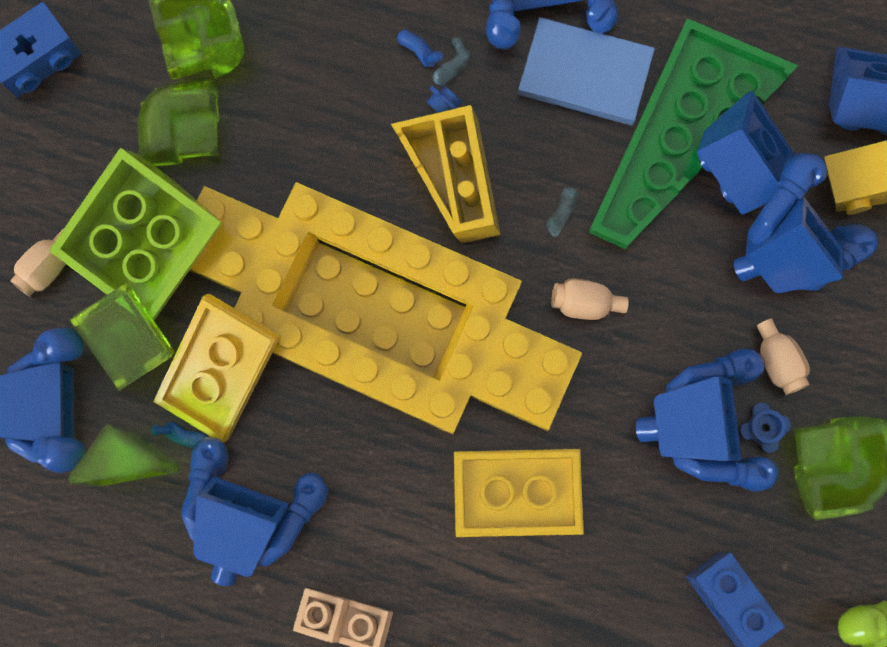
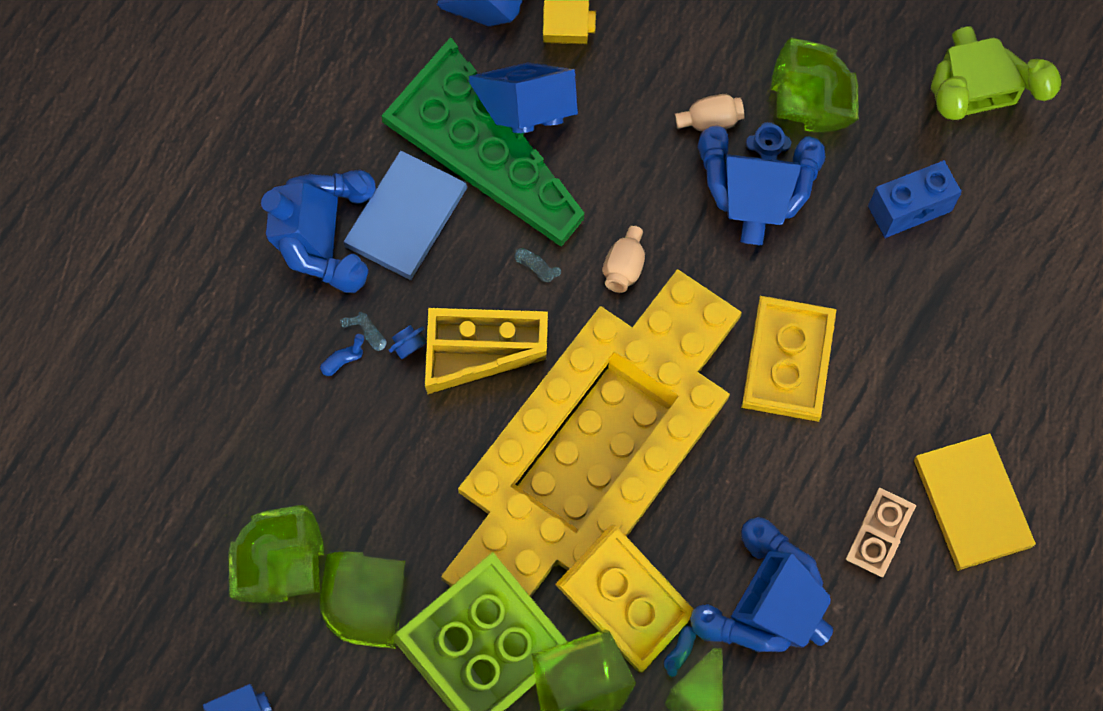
camera: 85 degrees left, 10 degrees down
(791, 241) = (617, 76): blue torso -> none

